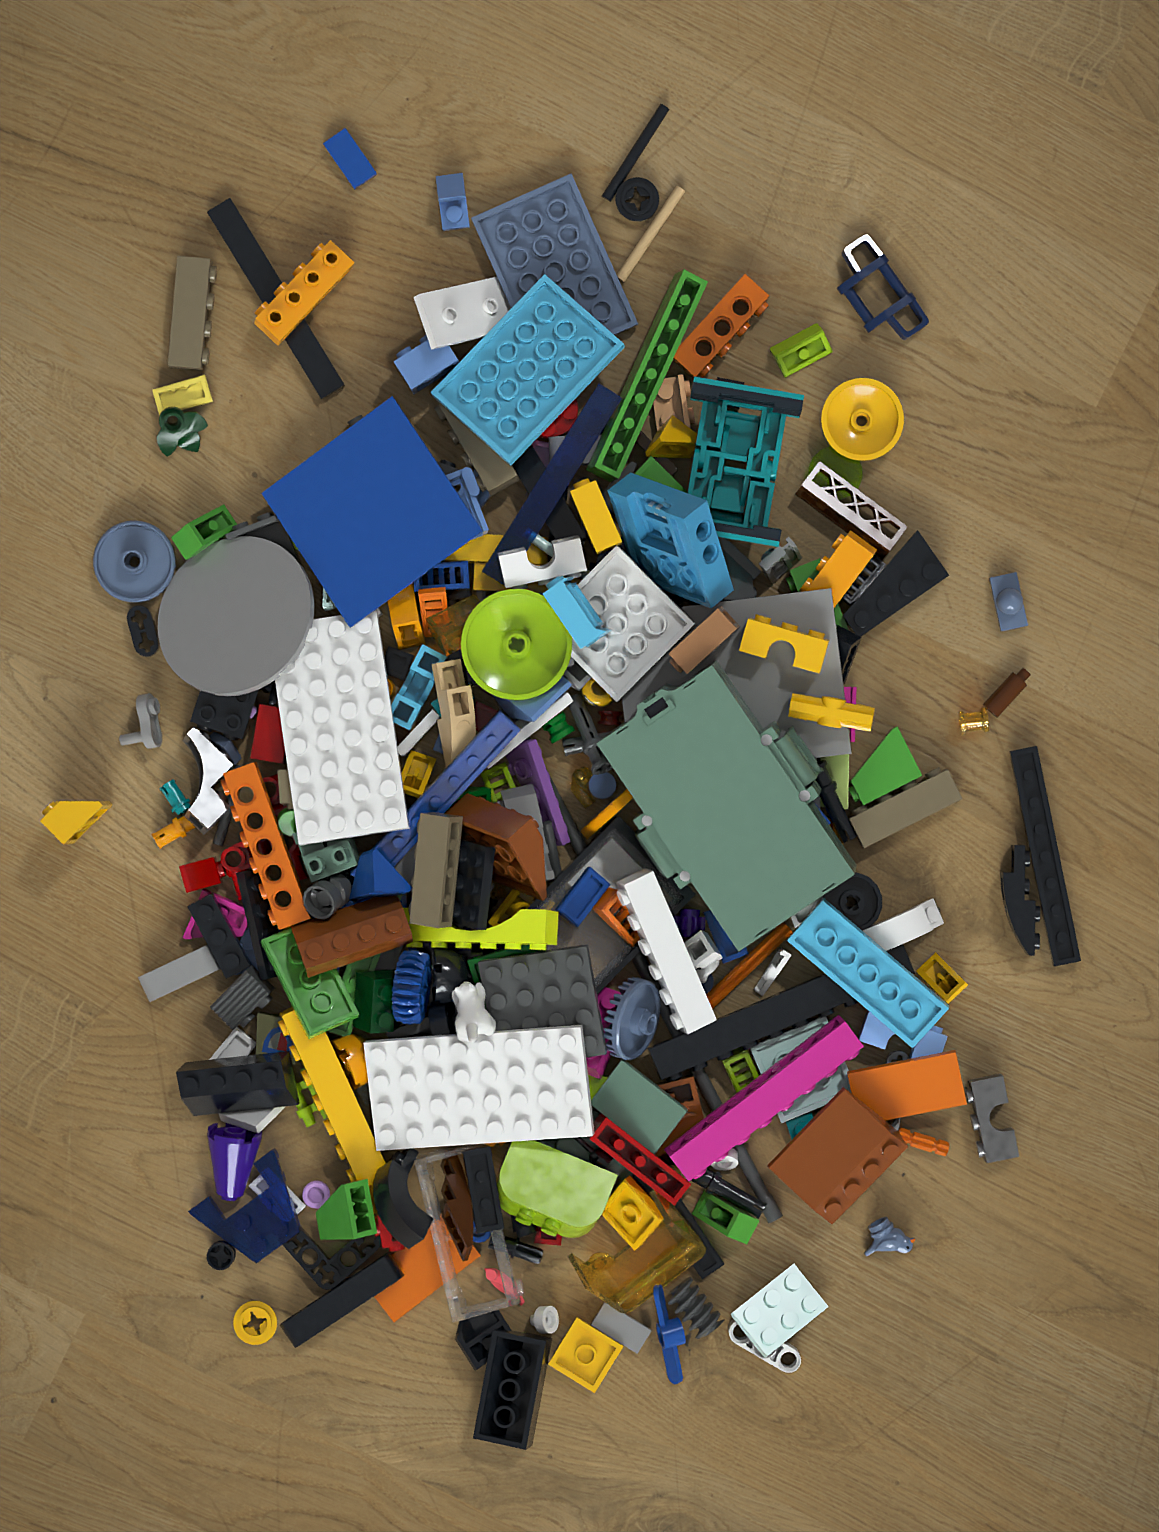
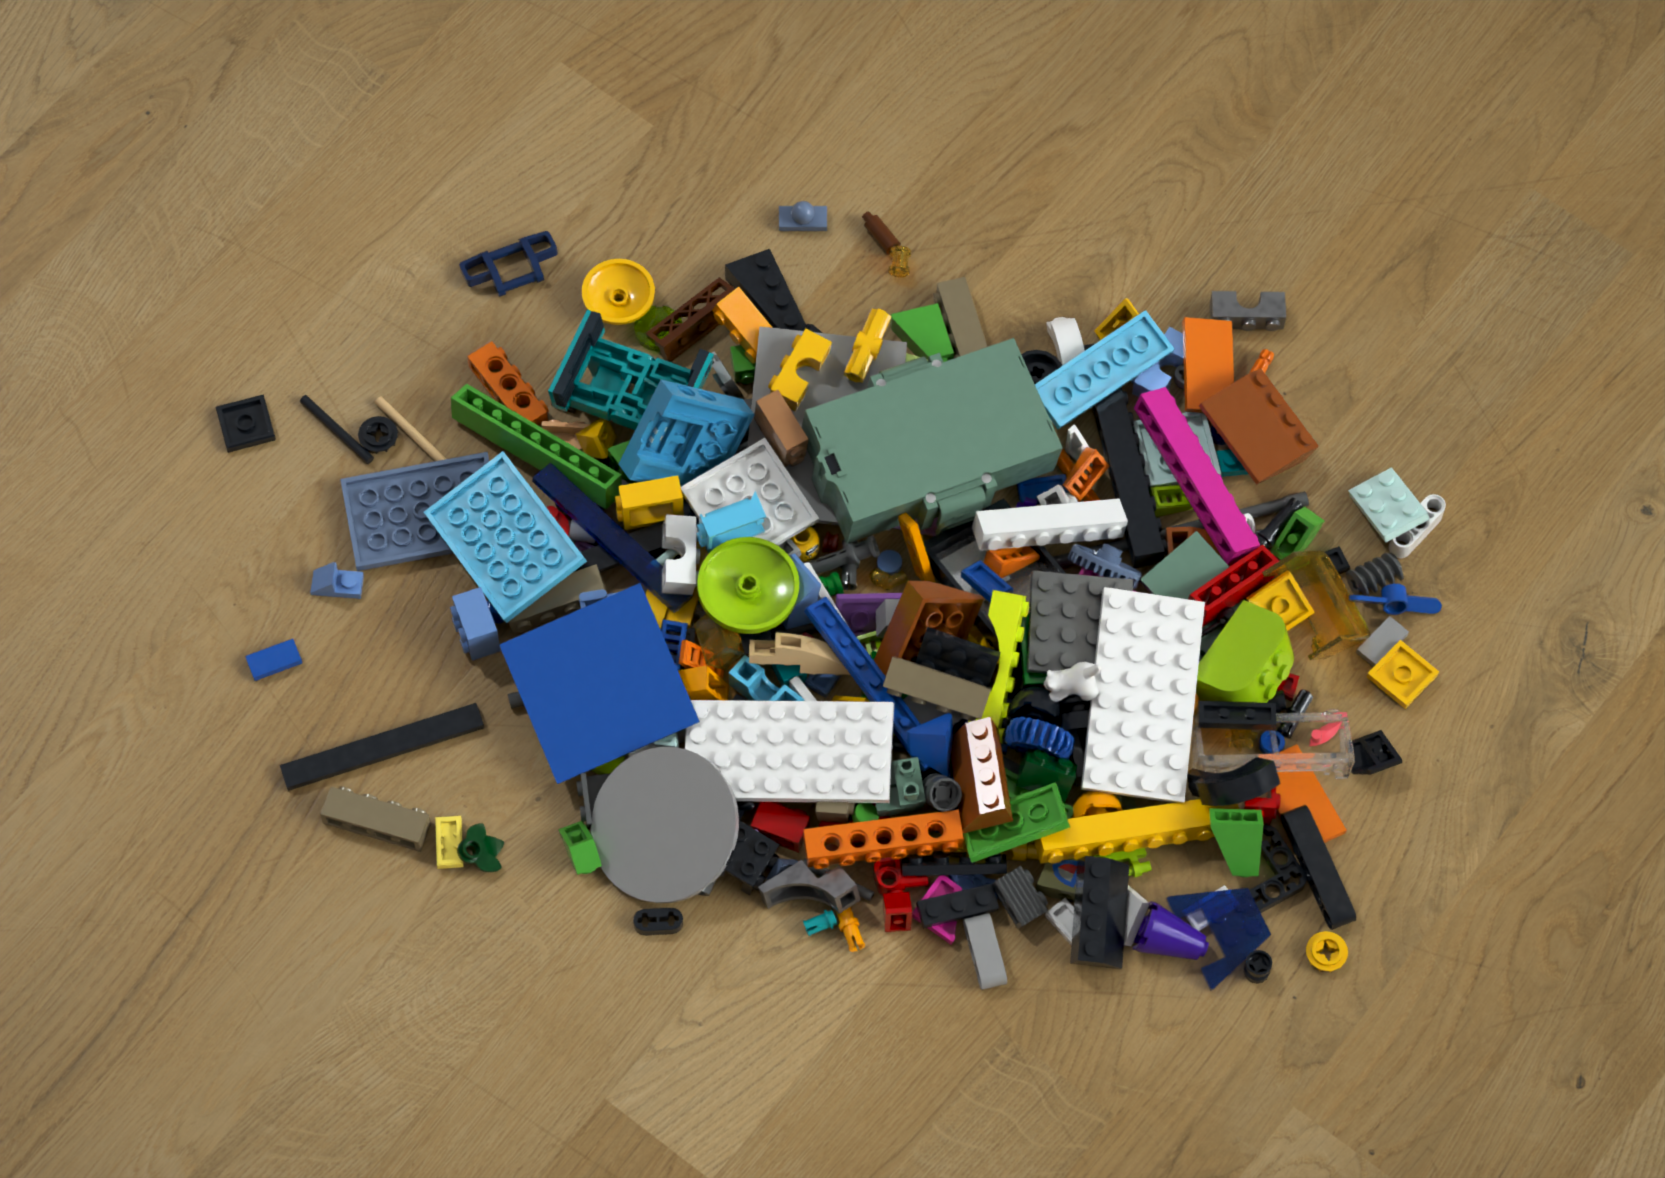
camera: 80 degrees left, 25 degrees down
(72, 818) = (821, 1004): yellow slope -> none
(113, 559) = (597, 930): sand blue wheel -> none
(150, 733) = (731, 928): light grey piece -> none
(304, 292) = (384, 715): light orange brick -> none
(315, 1194) = (1215, 875): lavender tile -> none
(458, 1205) = (1251, 737): reddish brown slope -> none
(461, 311) = (439, 580): white plate -> none
(512, 1388) = (1424, 734): black slope -> none
(545, 1319) = (1365, 701): white tile -> none
(621, 52) = (245, 423): none -> black tile
(750, 979) = (1083, 463): none -> orange slope
(801, 350) = (544, 334): lime slope -> none
(888, 1238) = (1338, 411): sand blue animal -> none
(1020, 912) = (1071, 258): black slope -> none
(1045, 856) = (1028, 230): black plate -> none

